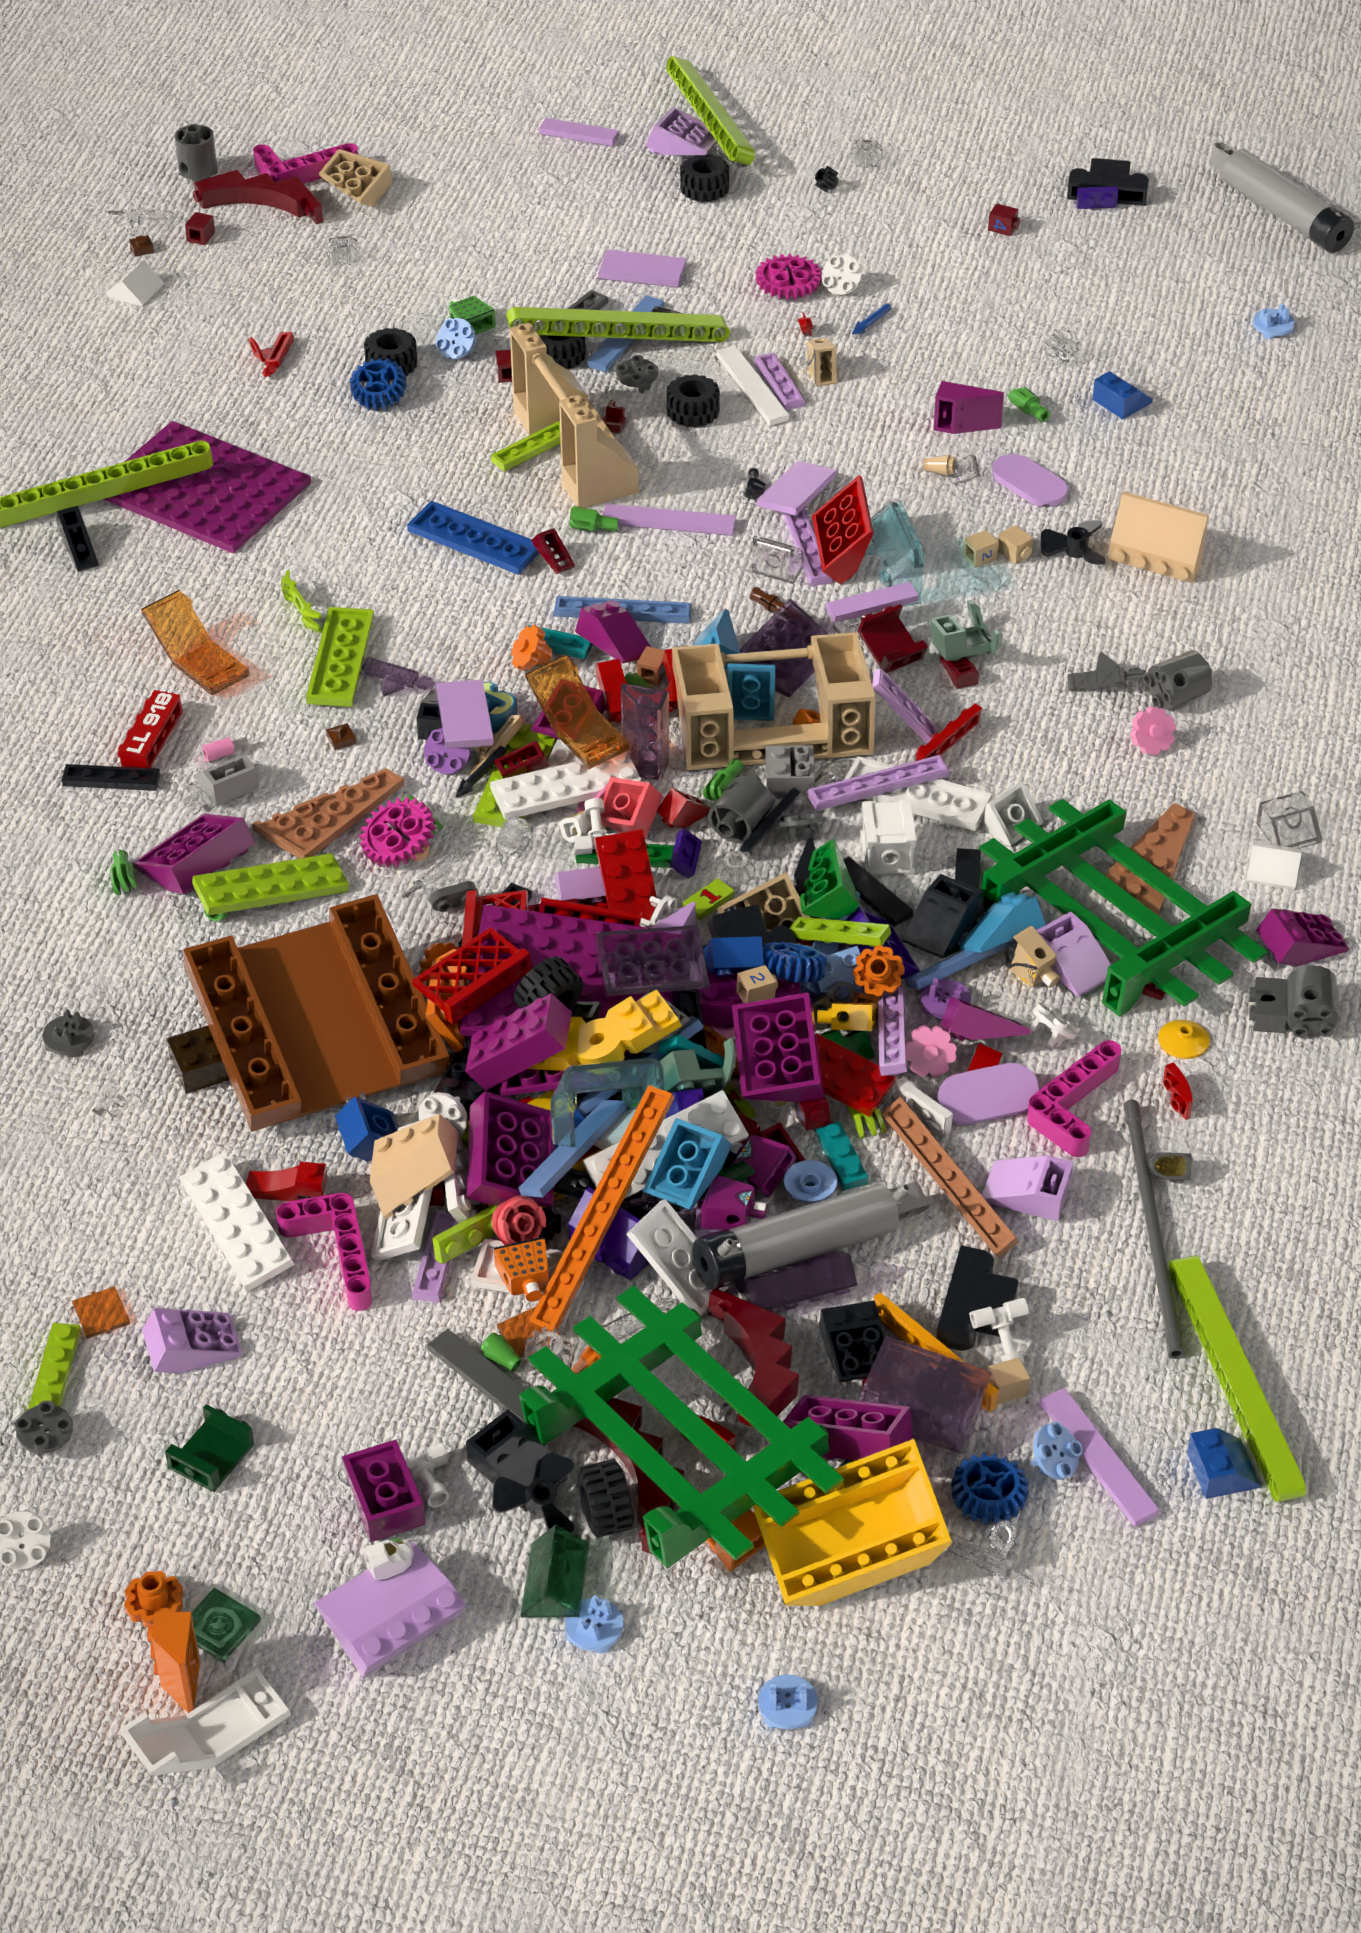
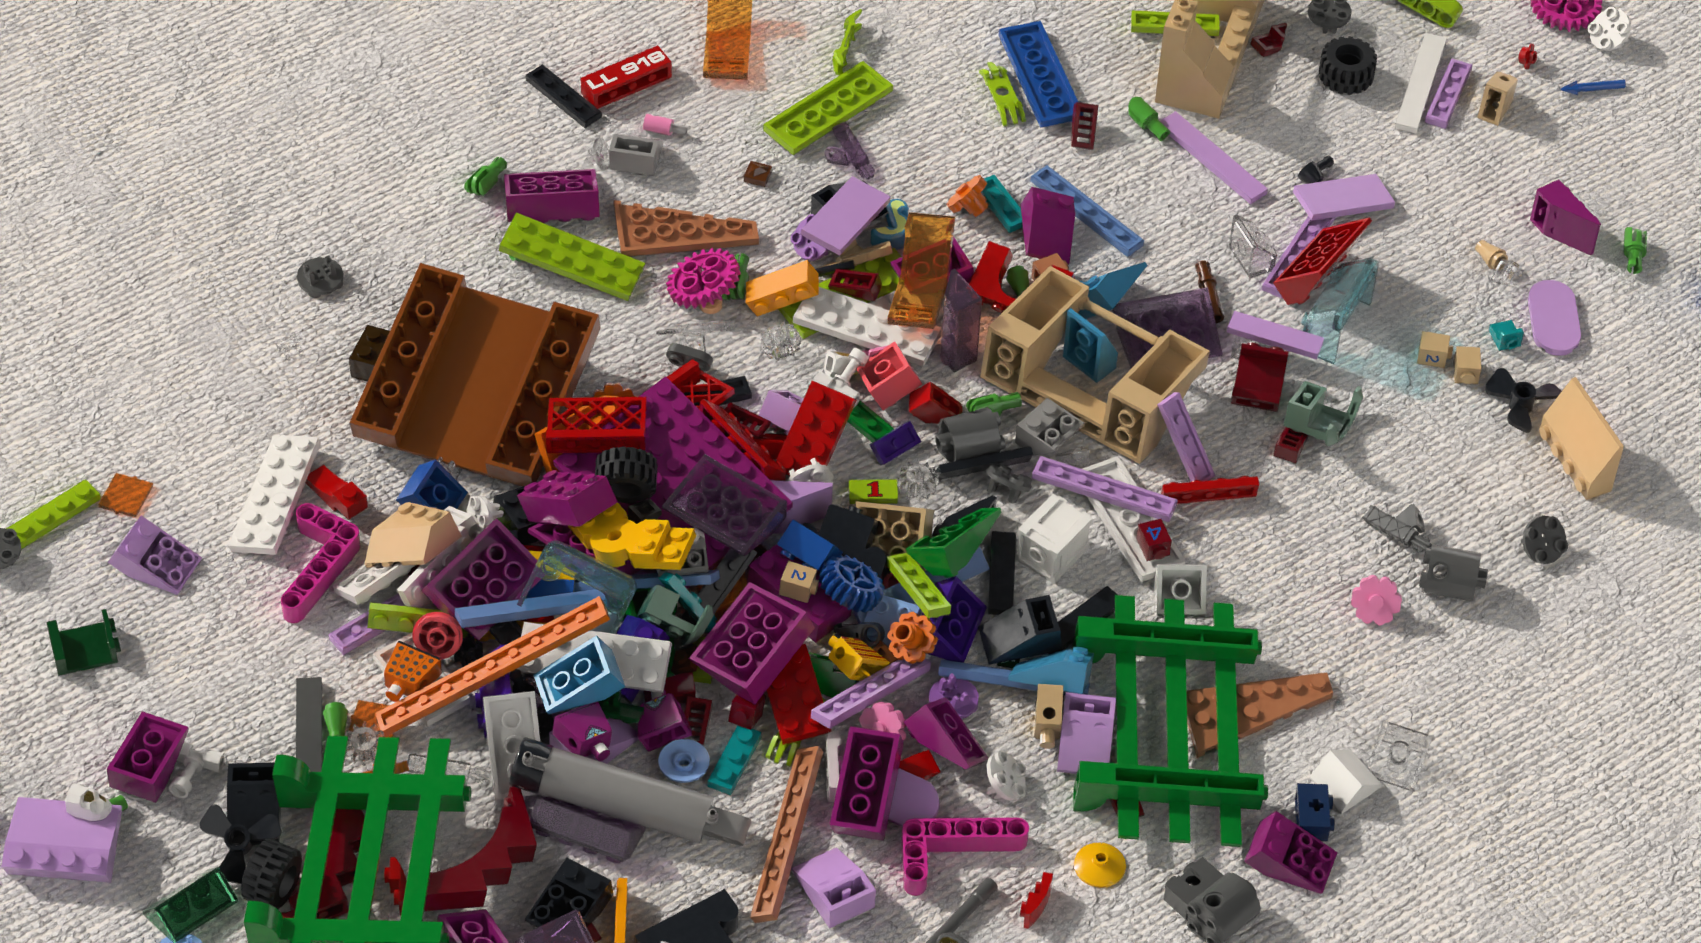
camera: 40 degrees right, 5 degrees up
(472, 572) = (1007, 101): none -> lime piece
(473, 797) = (782, 288): none -> light orange brick
(959, 791) = (1154, 540): none -> dark red brick
(974, 1093) = (866, 783): none -> magenta brick
(1013, 511) = (1506, 335): none -> teal bracket
(1207, 621) = (1553, 535): none -> dark grey plate
(1280, 893) = (1313, 809): none -> dark blue brick

